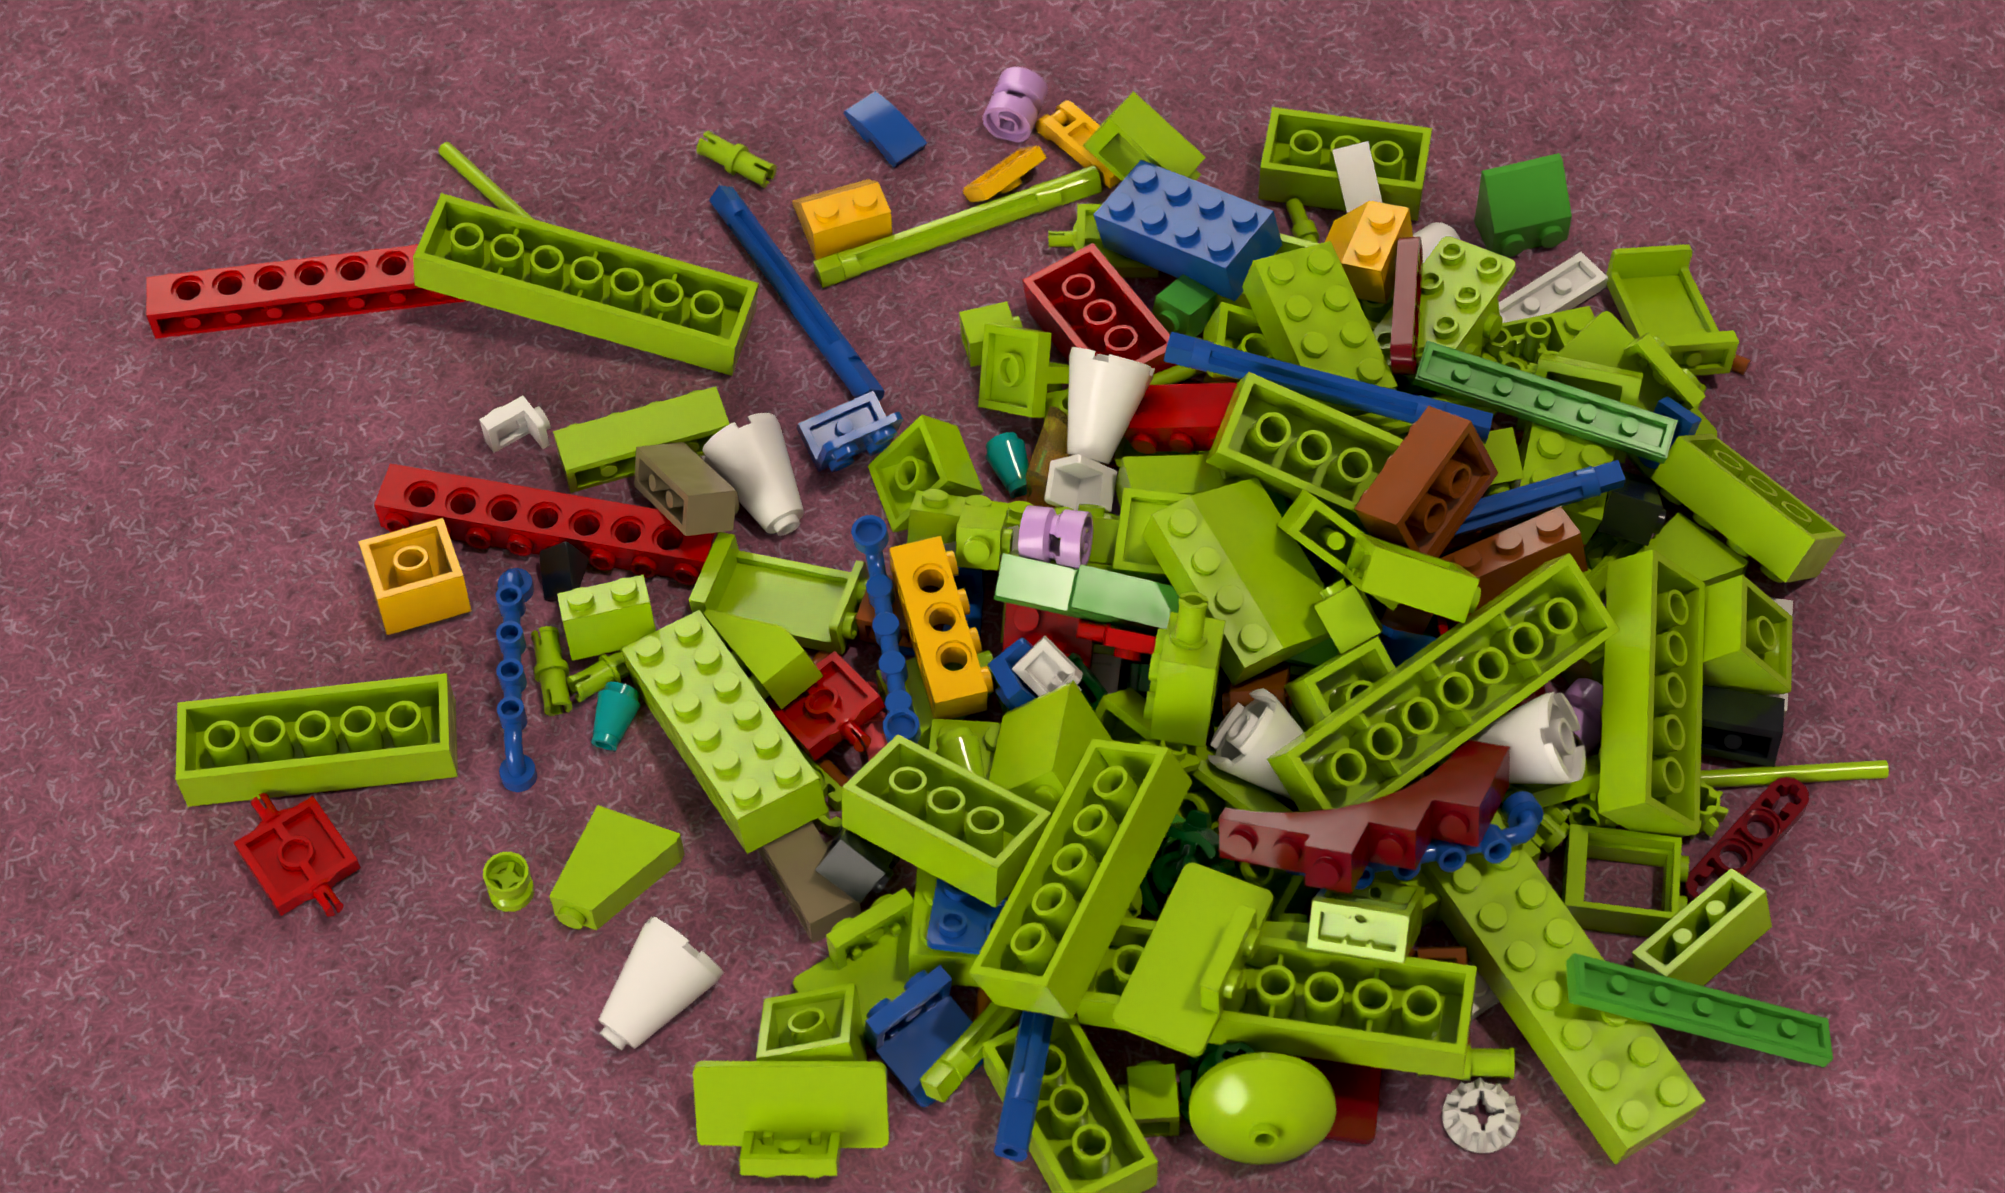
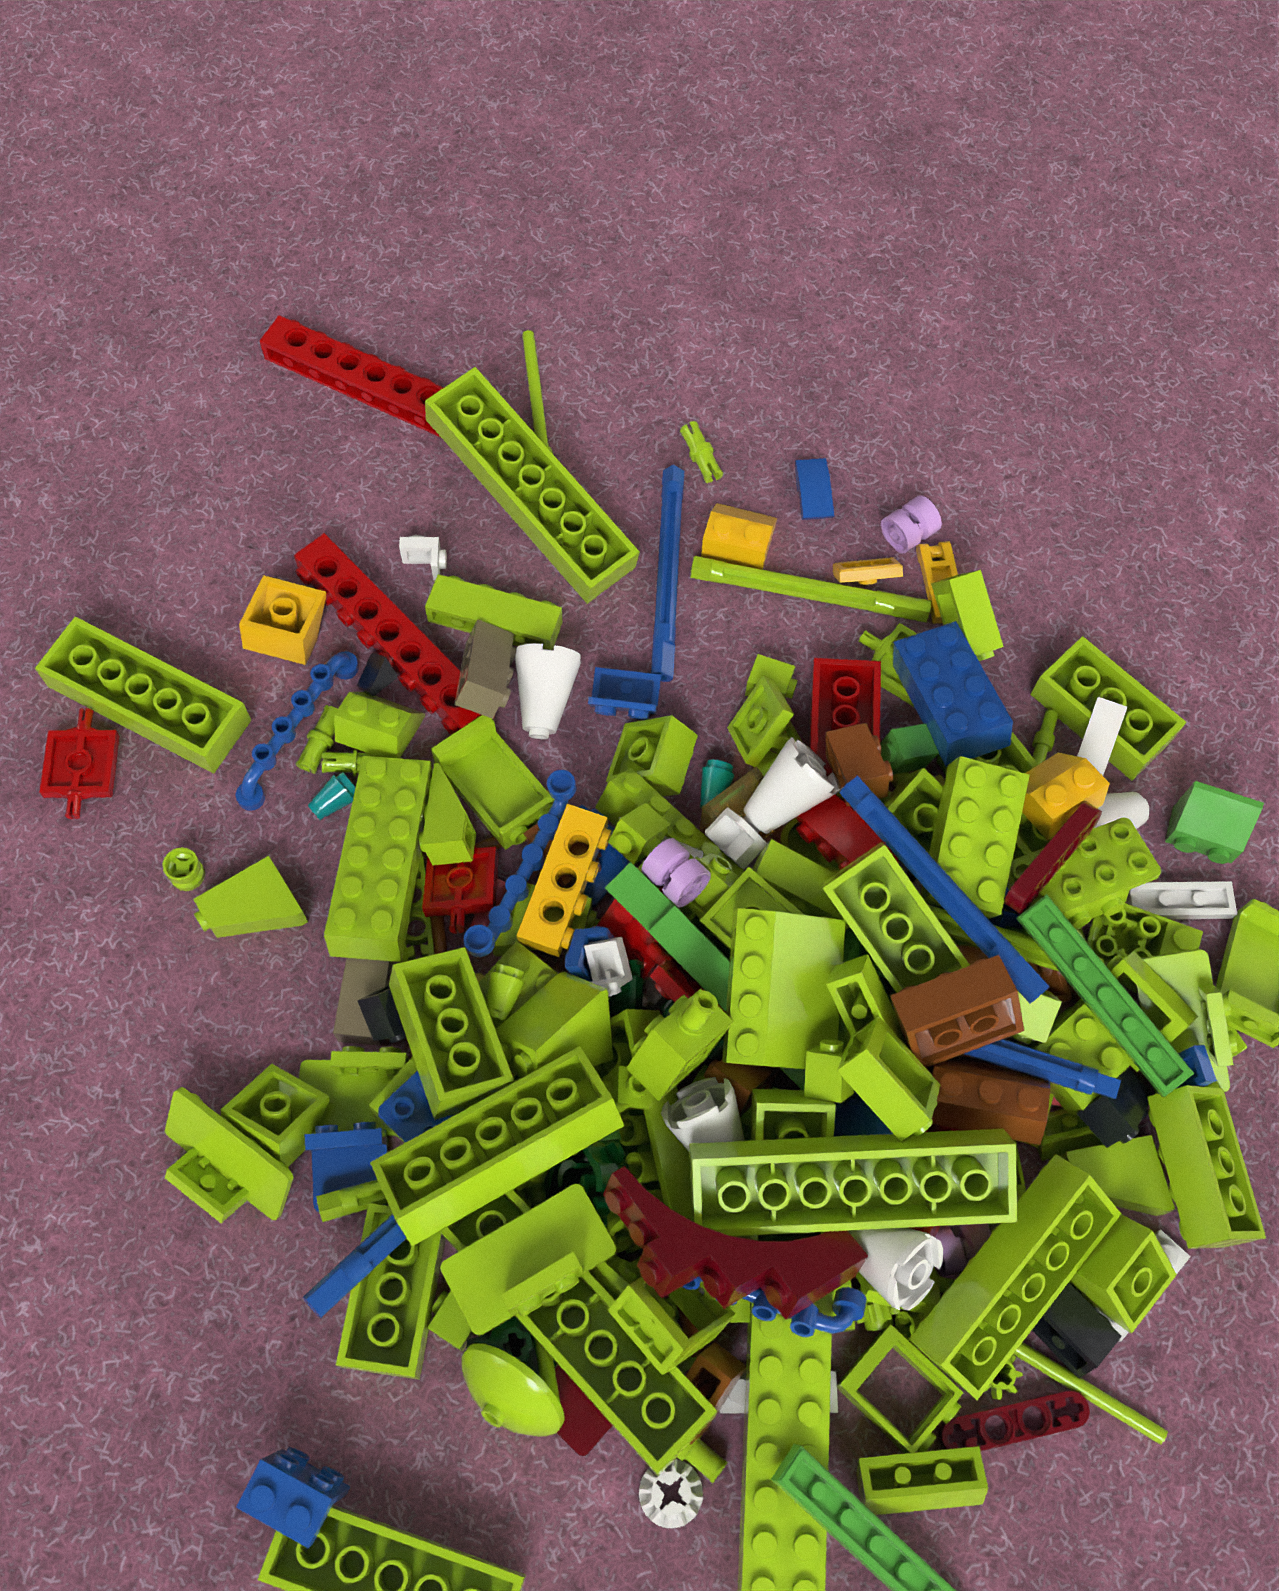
camera: 30 degrees right, 10 degrees up
(655, 985) = (214, 1005): white cone -> none
(1141, 334) = (857, 753): none -> dark orange brick

